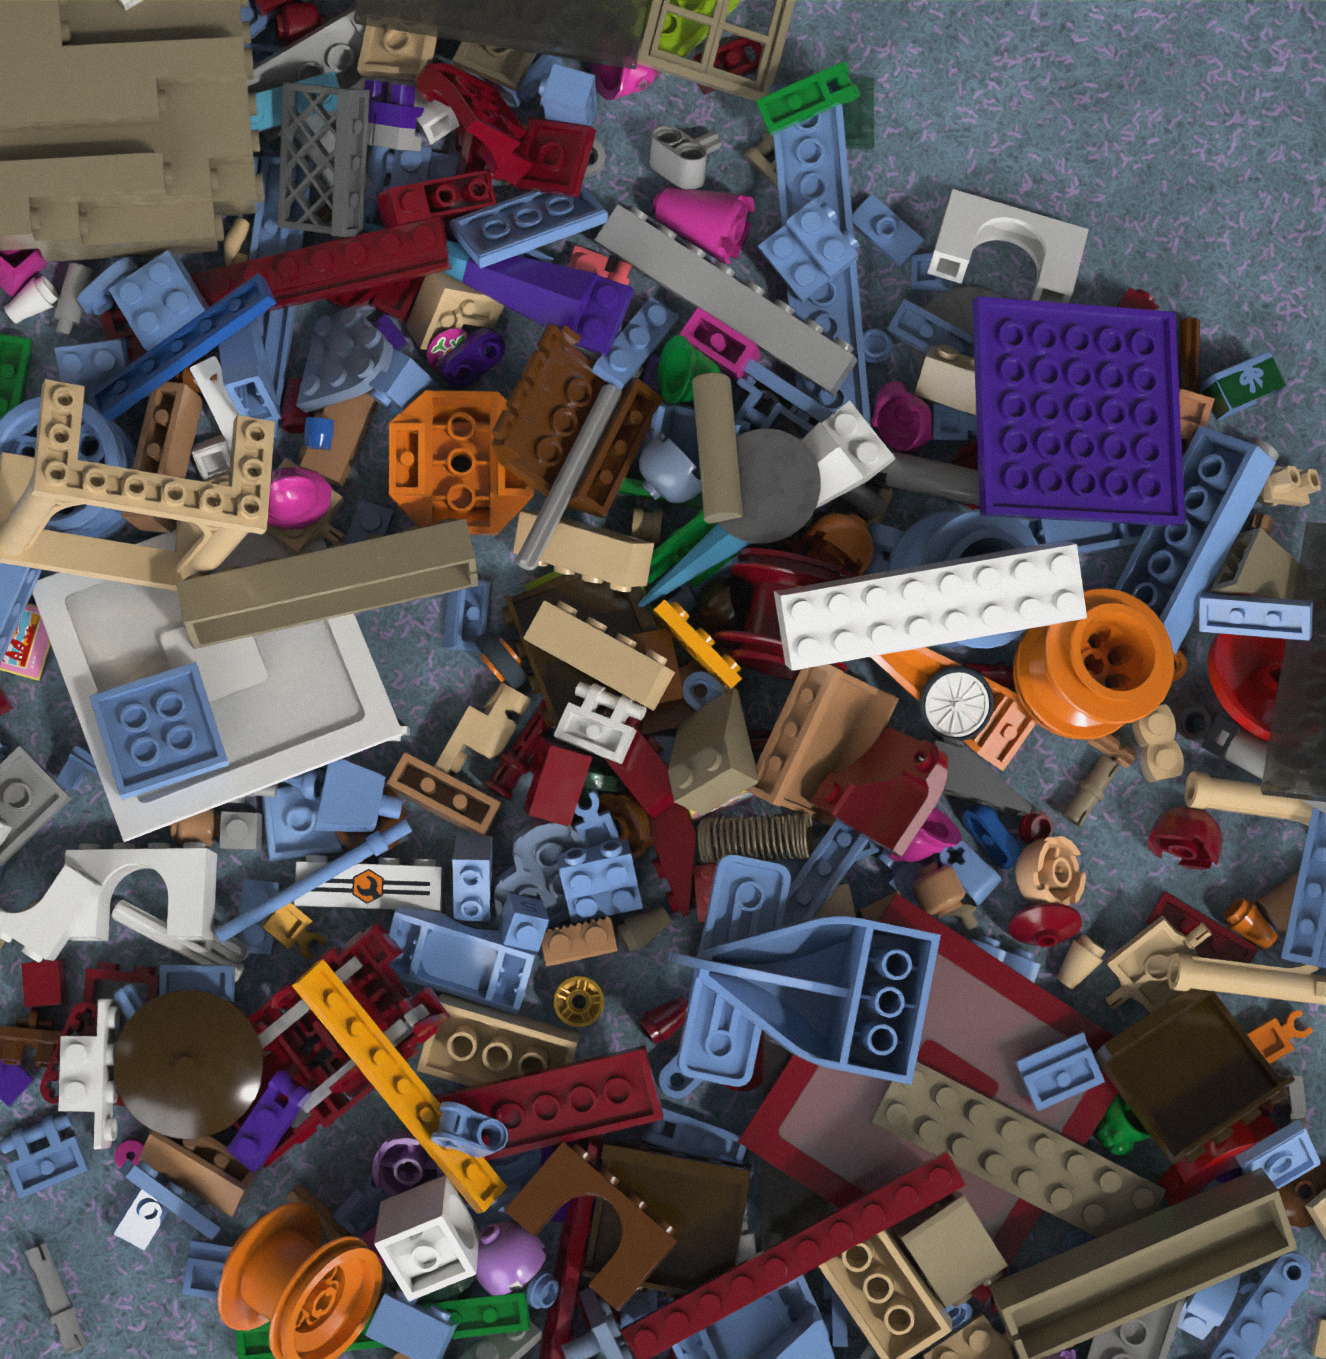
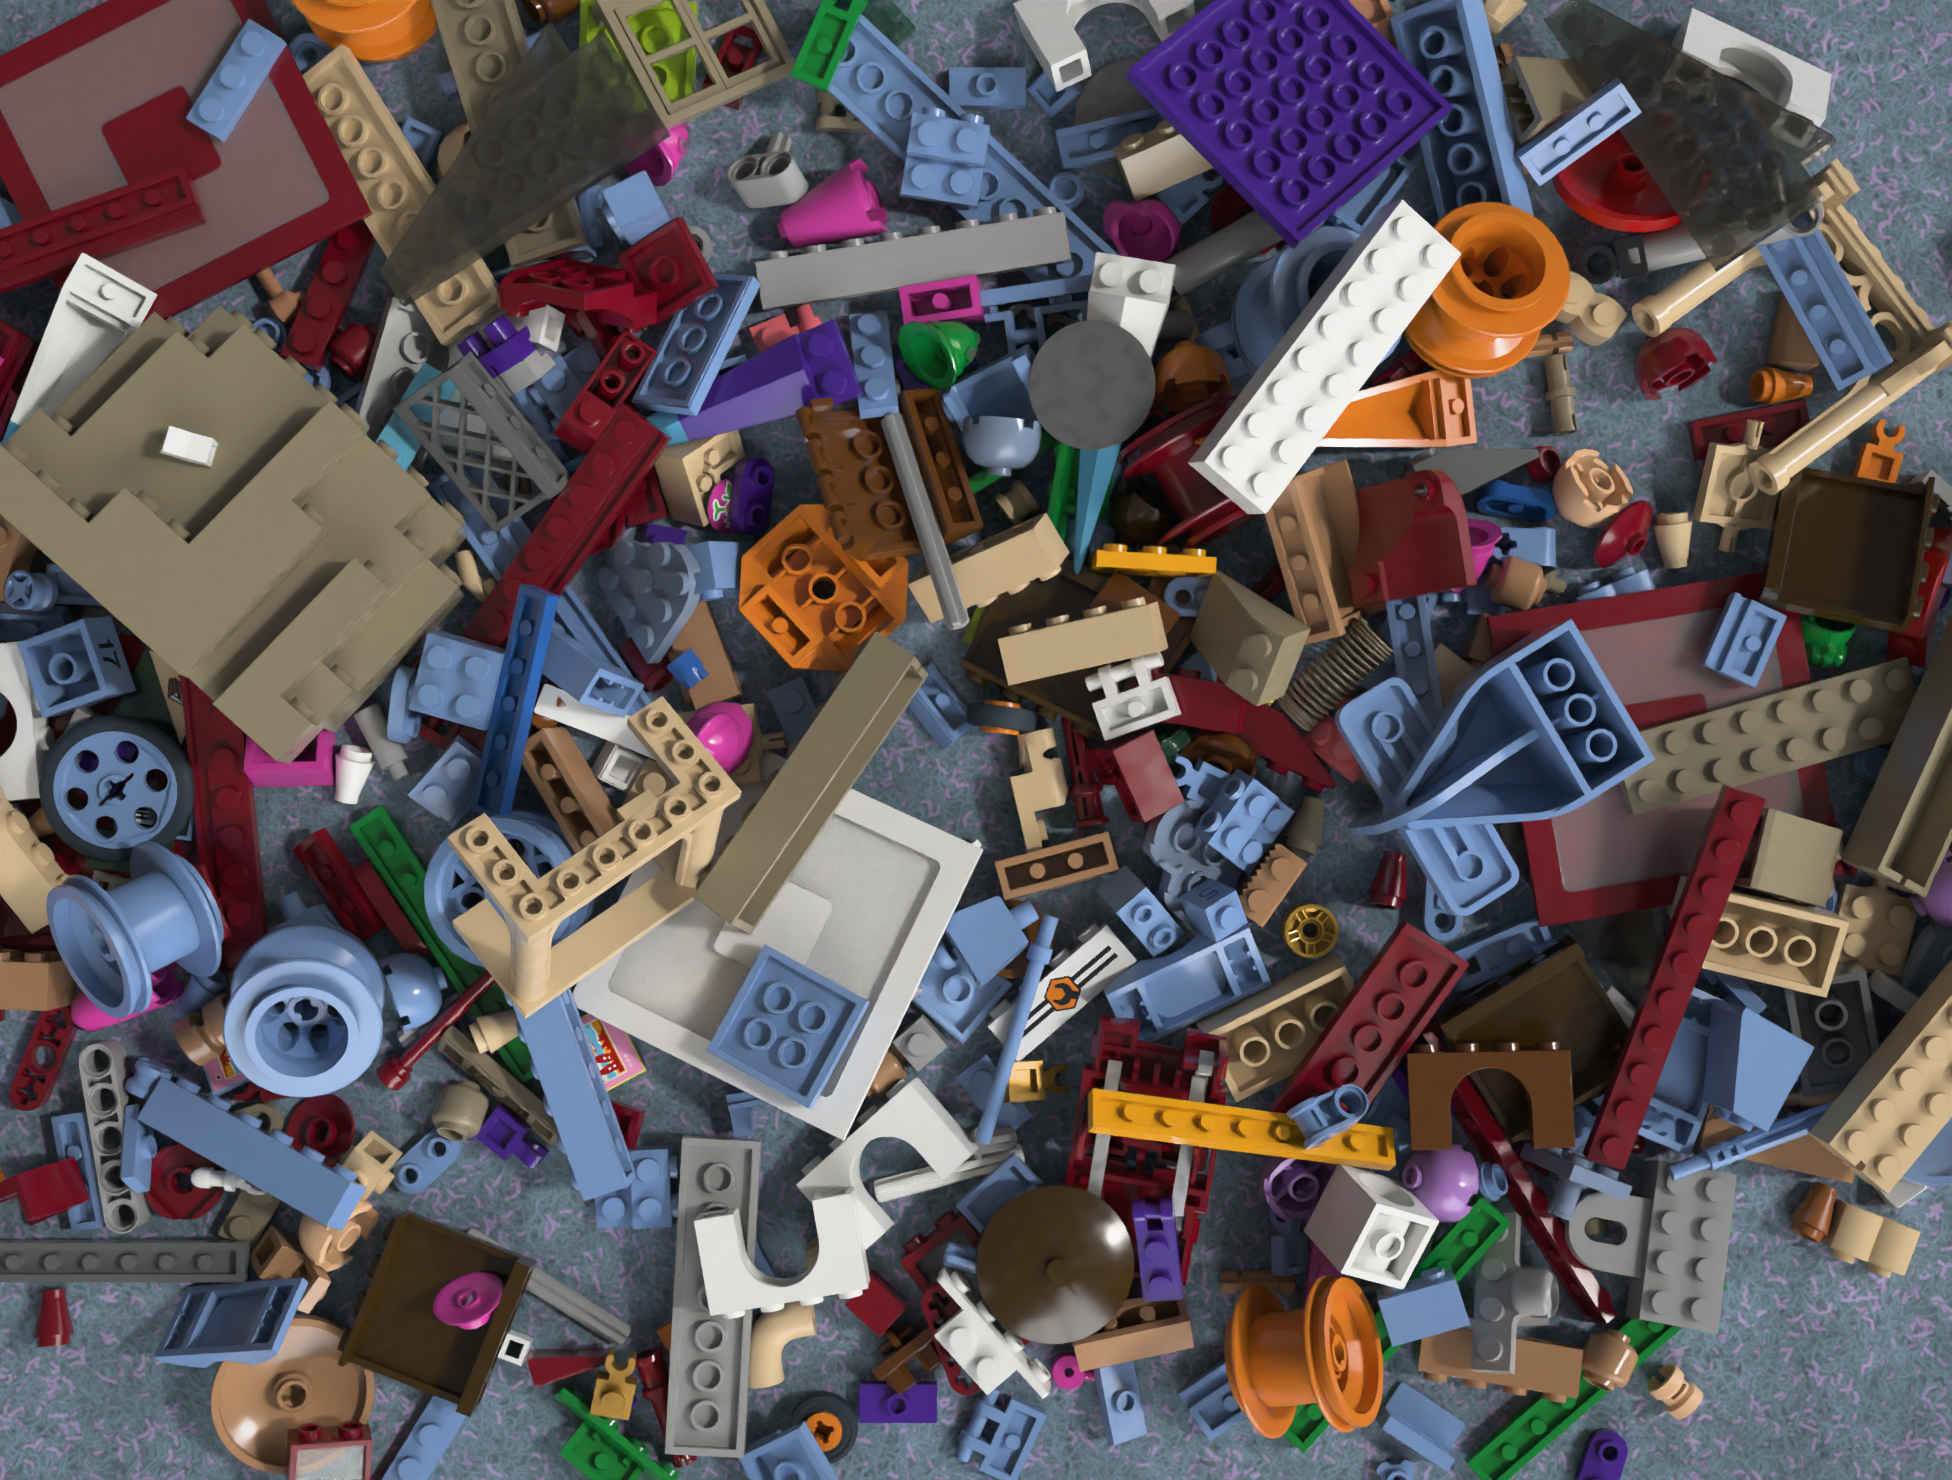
camera: 45 degrees left, 5 degrees up
(171, 1197) = (1133, 1377): medium blue plate -> none
(717, 447) = (1026, 388): dark tan brick -> none
(956, 703) = (1398, 421): white wheel -> none

